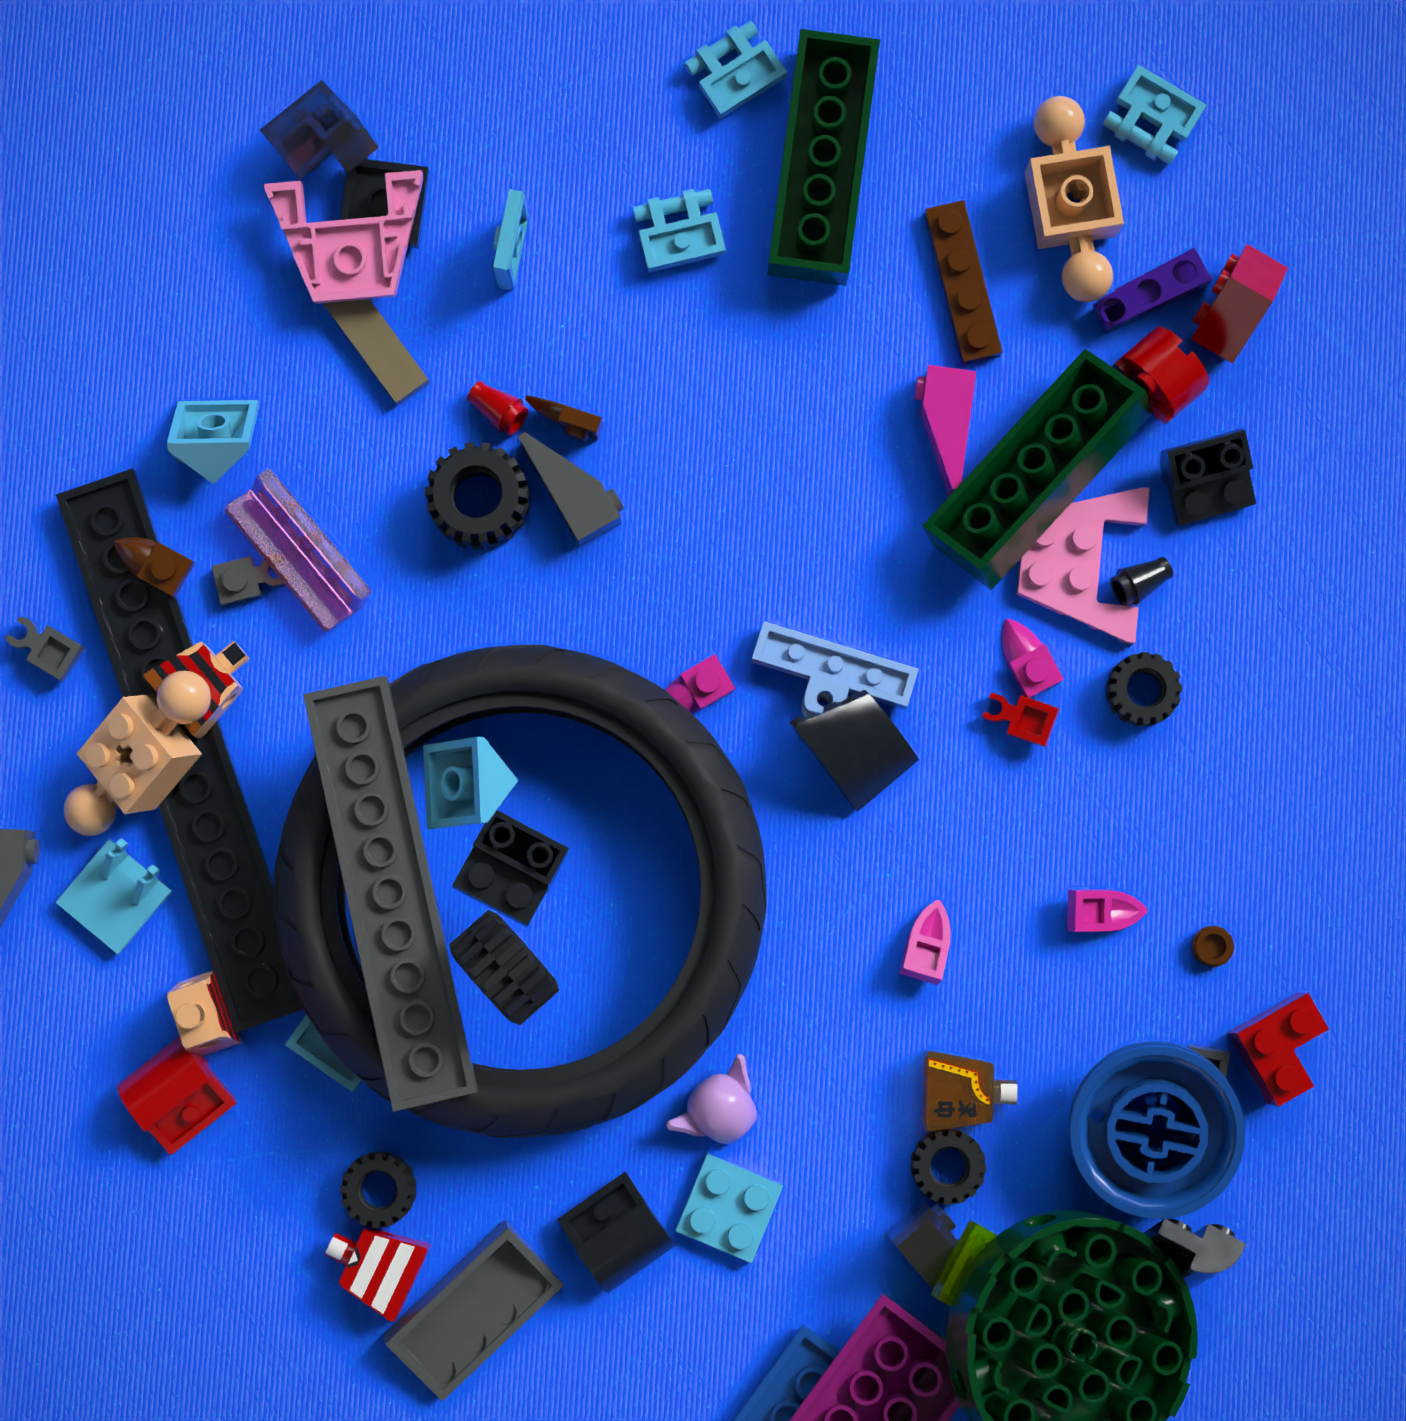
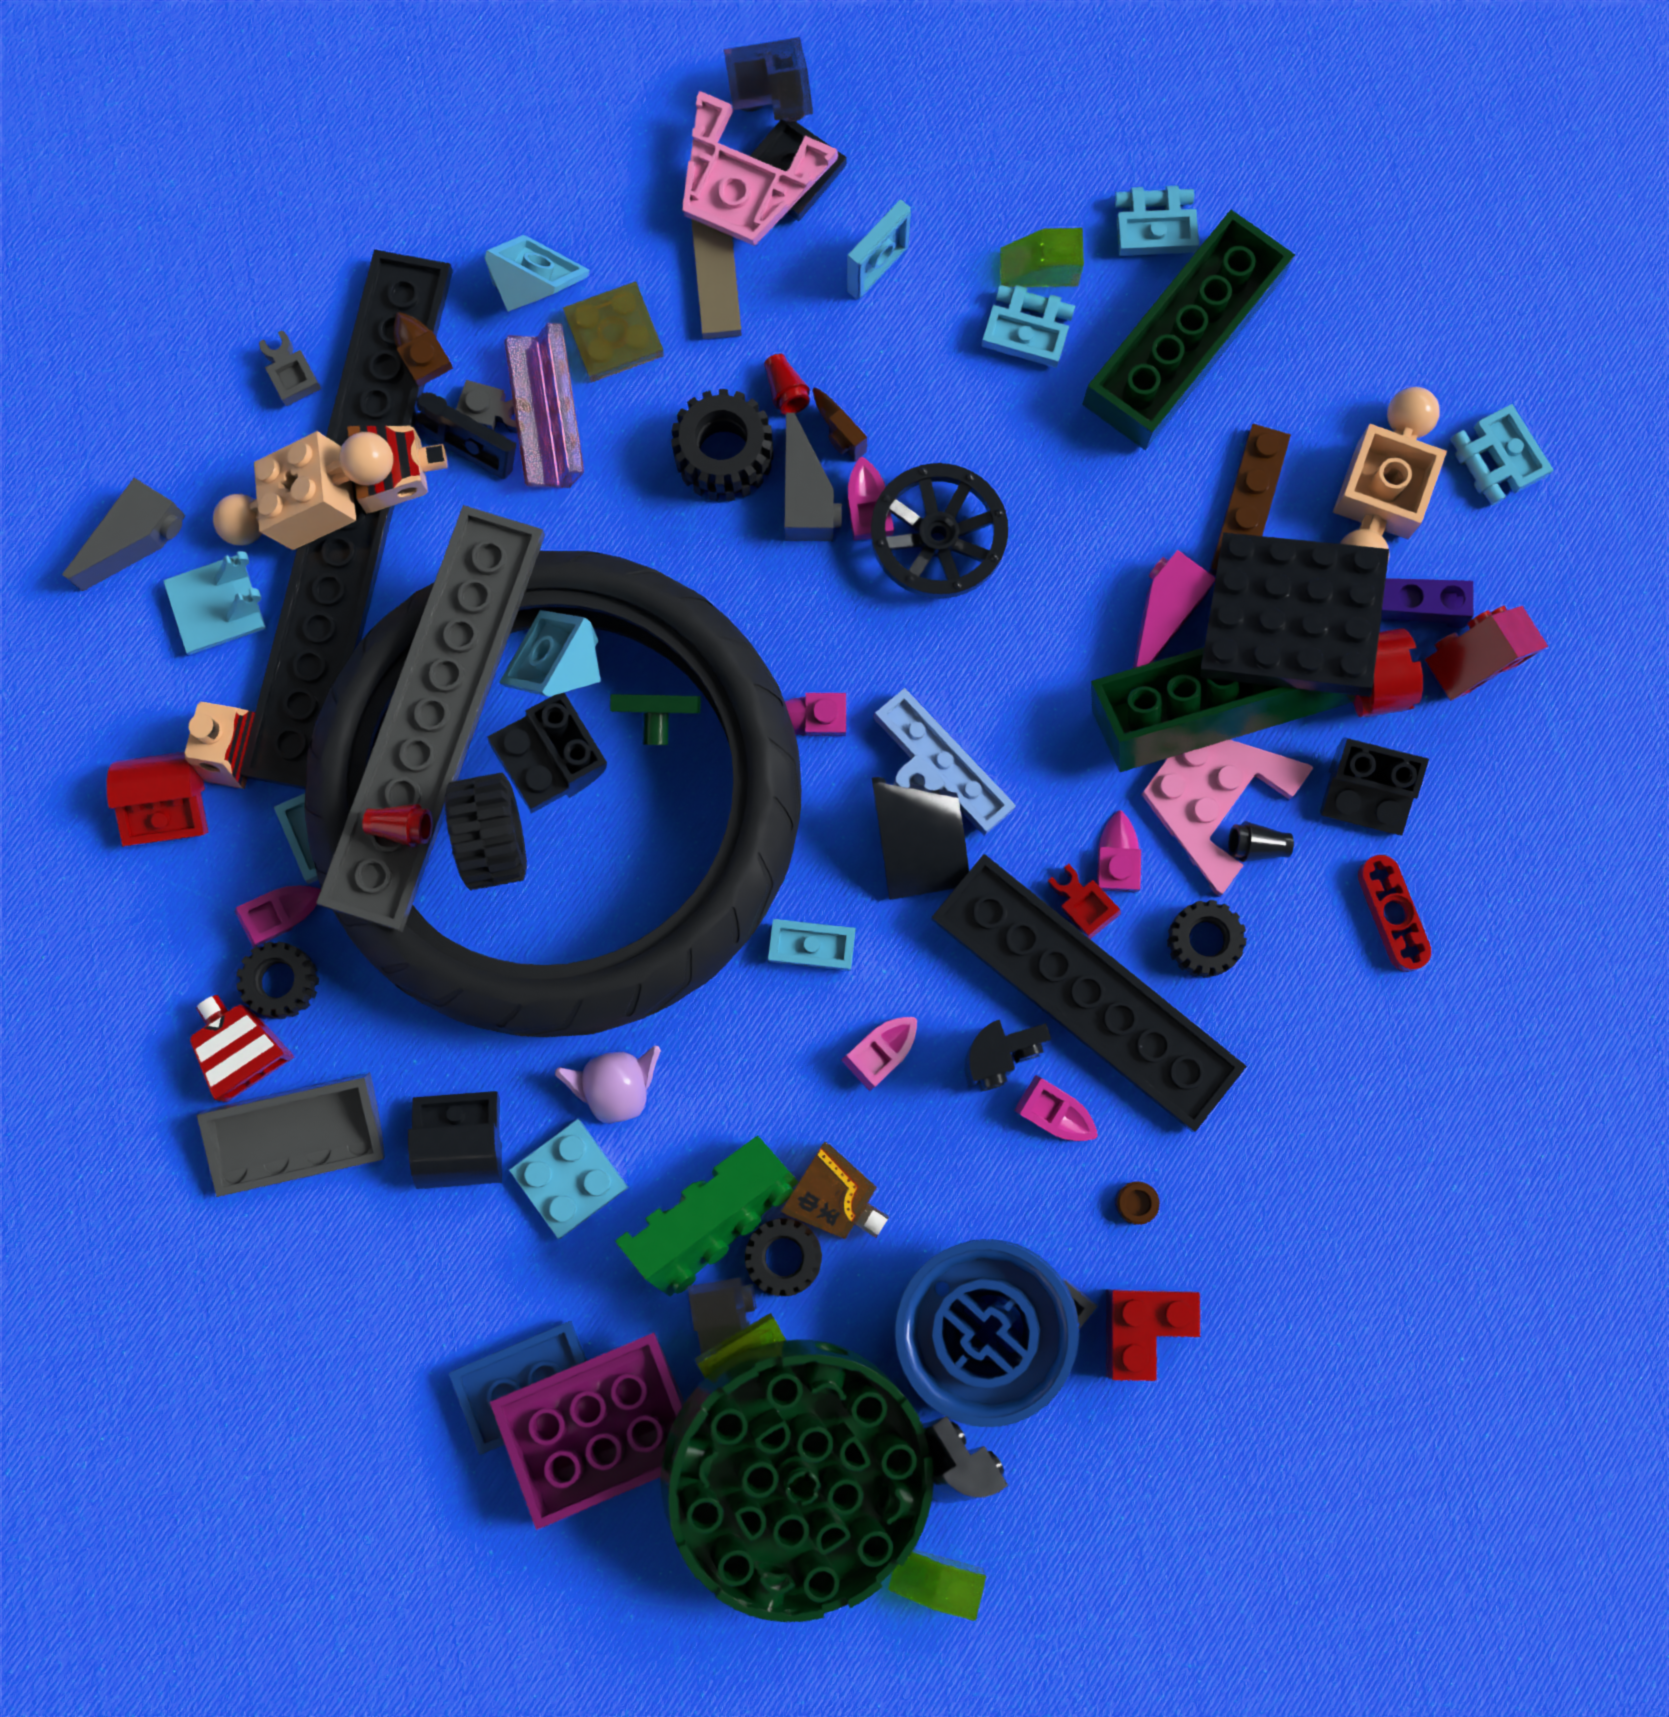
camera: 35 degrees right, 5 degrees down
(242, 617) = (465, 435): none -> black hinge
(314, 445) = (613, 331): none -> clear yellow plate
(341, 1131) = (276, 912): none -> dark pink plate
(427, 1003) = (400, 824): none -> red cone
(579, 777) = (655, 712): none -> dark green tile
(634, 473) = (863, 492): none -> dark pink plate
(657, 162) = (1044, 259): none -> clear neon green slope
(715, 454) = (942, 523): none -> black wheel
(816, 889) = (811, 945): none -> medium azure plate
(870, 1170) = (709, 1218): none -> green wedge
(1022, 894) = (991, 1053): none -> black brick
(1063, 367) = (1296, 614): none -> black plate
(1071, 794) = (1089, 993): none -> black plate
(1234, 1353) = (940, 1584): none -> clear neon green slope
(1272, 546) = (1417, 936): none -> red beam

